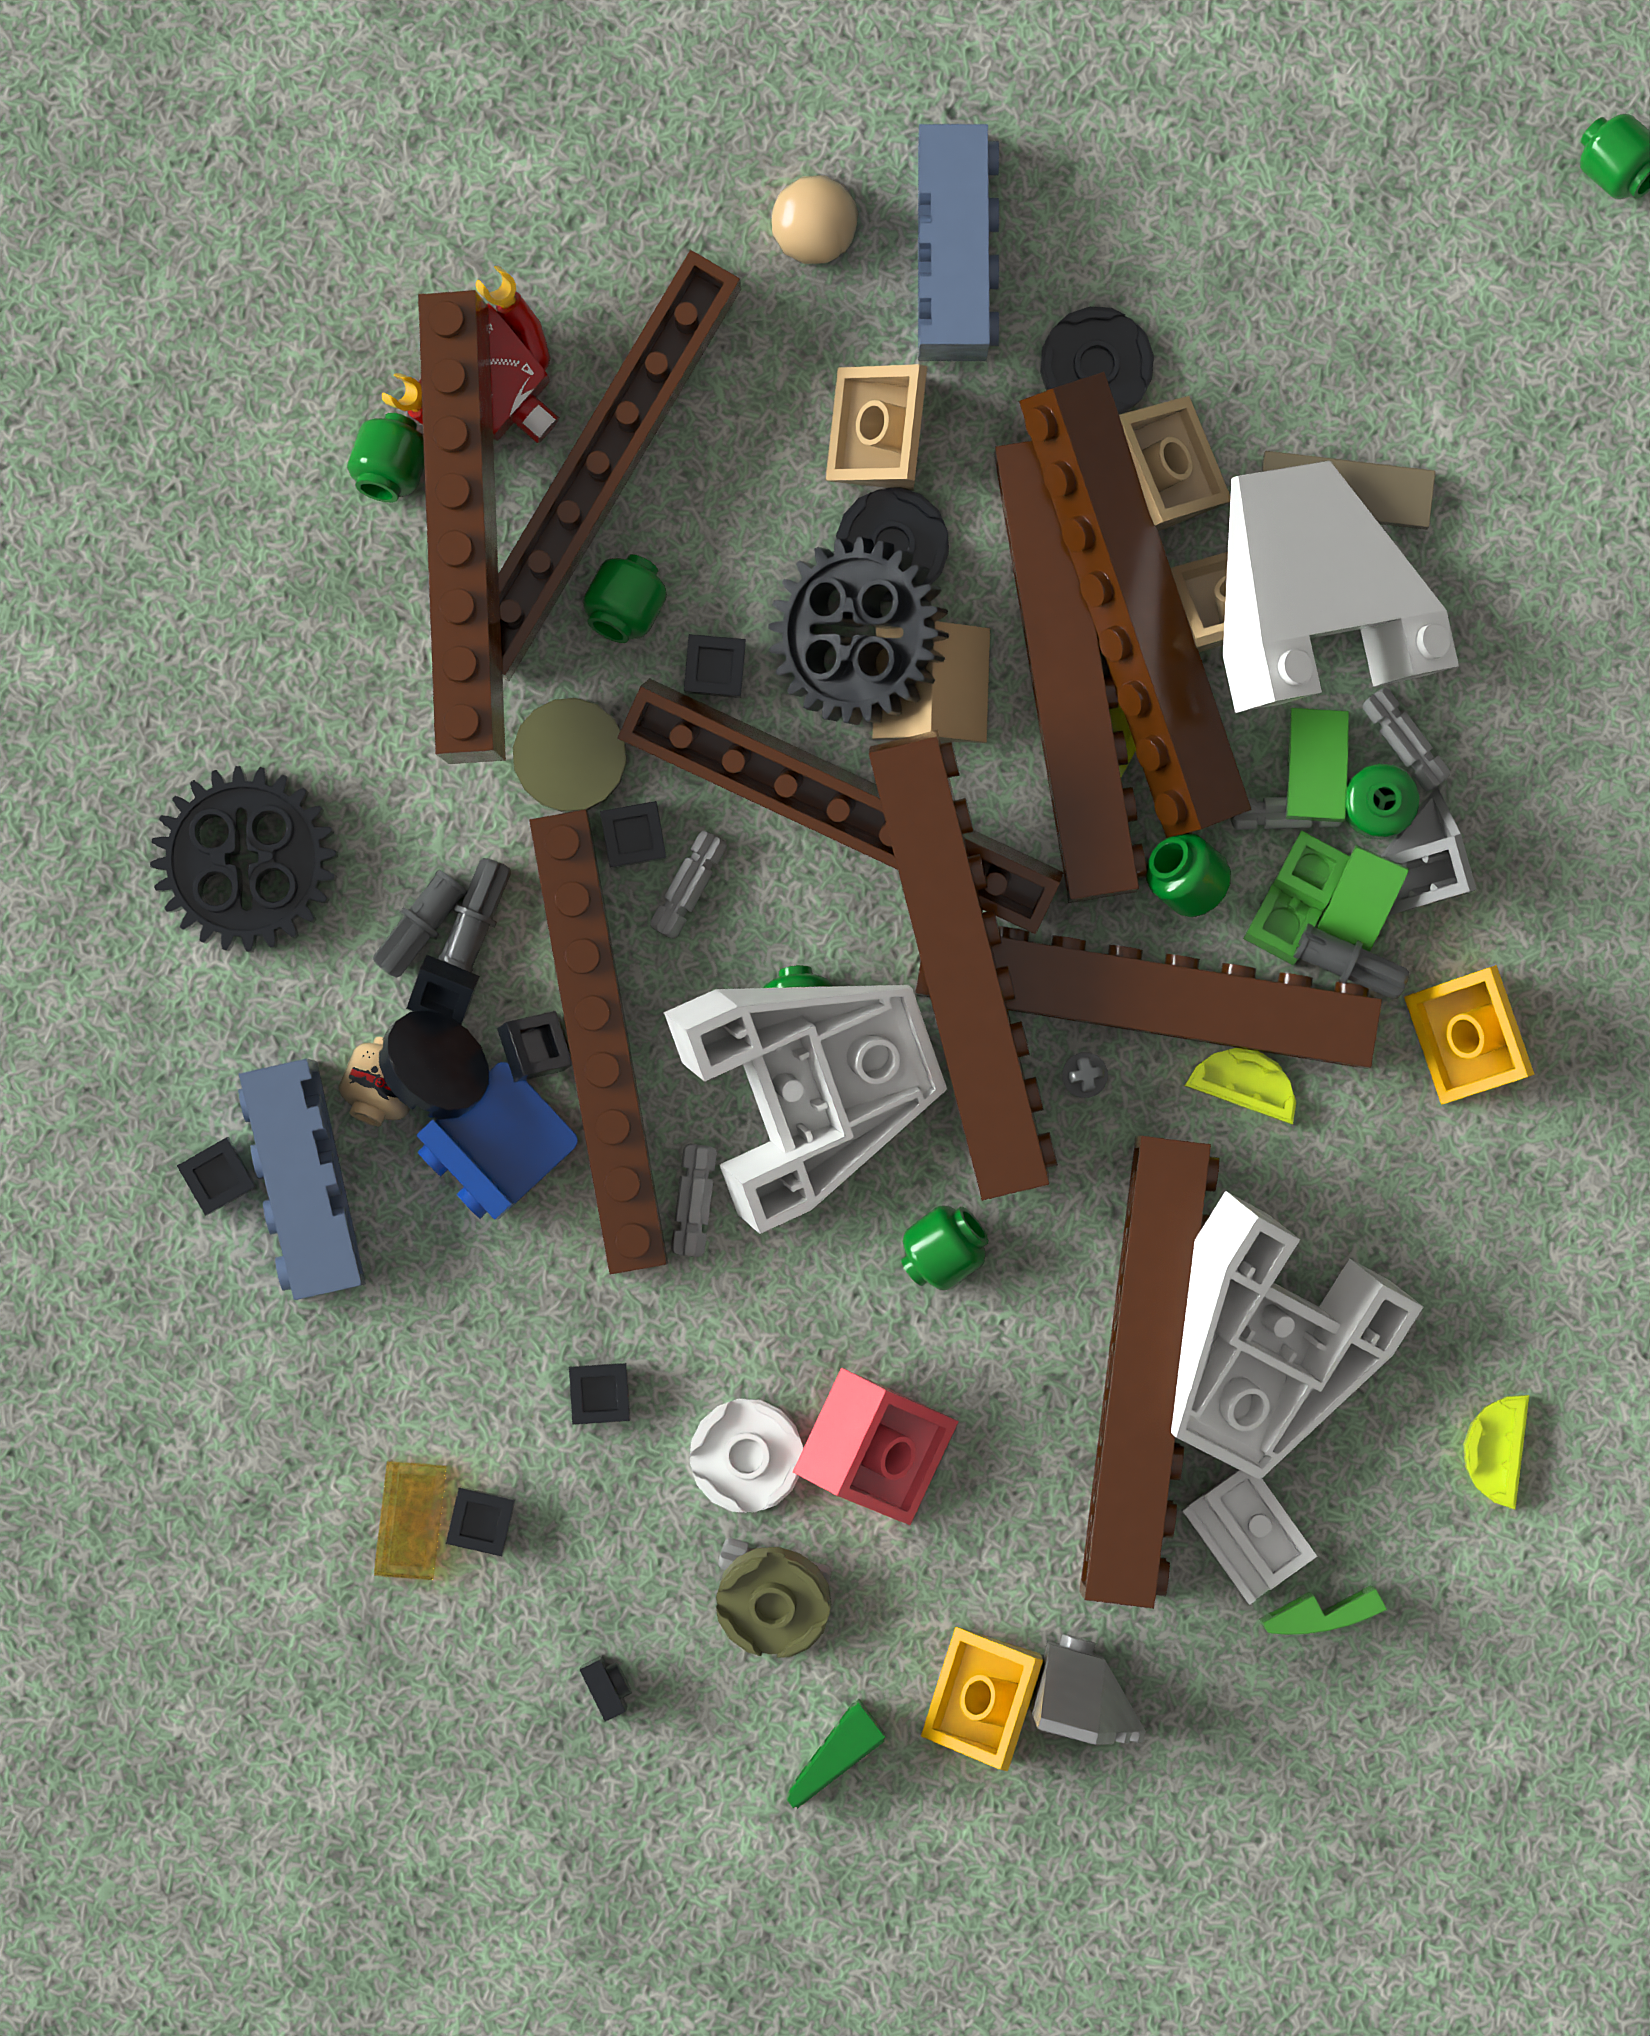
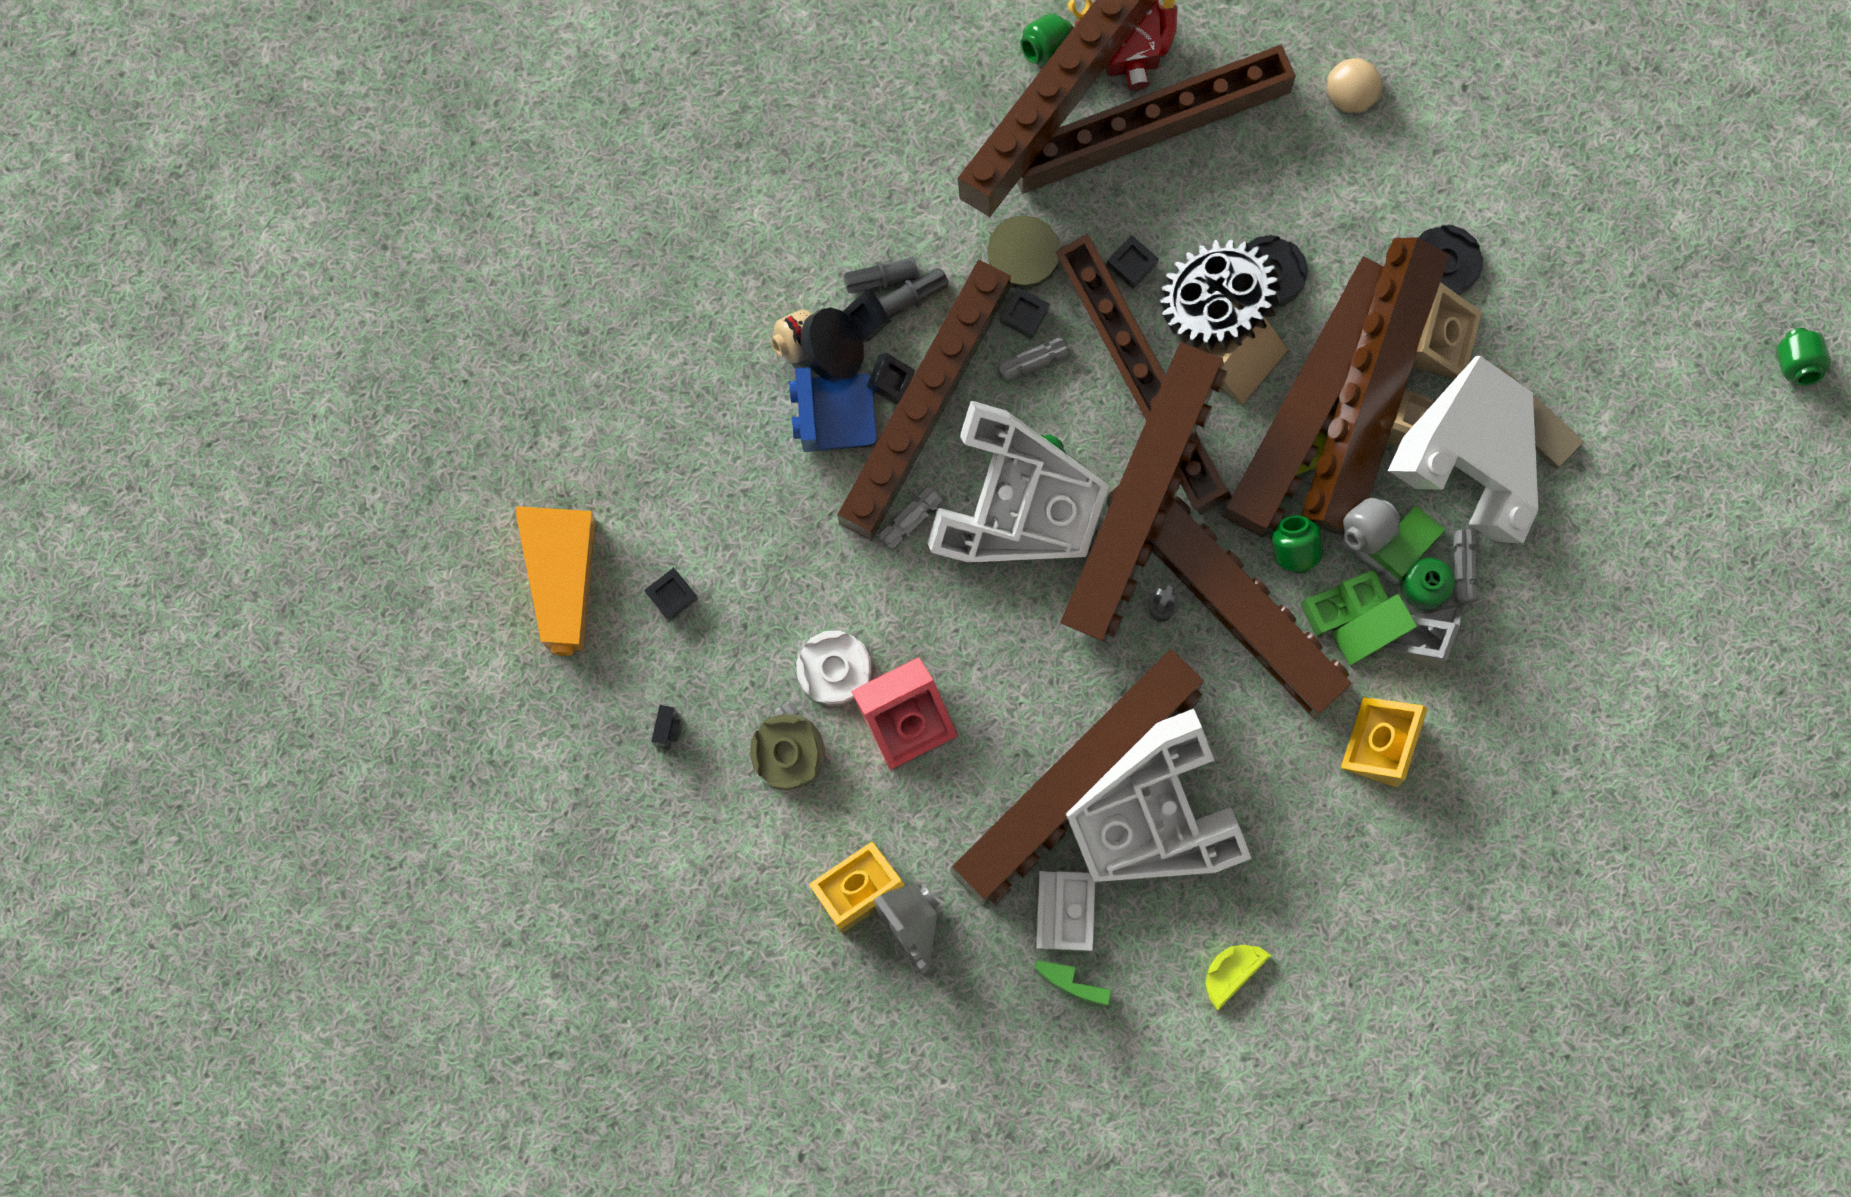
camera: 40 degrees right, 10 degrees down
(217, 1176) = (679, 321): black plate -> none
(296, 854) = (791, 162): black gear -> none
(302, 1178) = (721, 350): sand blue wedge -> none
(323, 1600) = (558, 566): none -> light orange slope
(410, 1520) = (635, 566): clear yellow slope -> none
(599, 1393) = (783, 576): black plate -> none
(624, 598) = (1112, 194): green head -> none
(846, 1745) = (765, 855): green slope -> none
(876, 425) = (1310, 206): tan slope -> none
(944, 1247) = (1020, 638): green head -> none
(955, 242) = (1419, 142): sand blue wedge -> none
(1246, 1080) = (1246, 676): neon yellow tile -> none
(1262, 788) = (1371, 525): none -> light grey head
(1351, 962) = (1349, 653): dark grey axle -> none

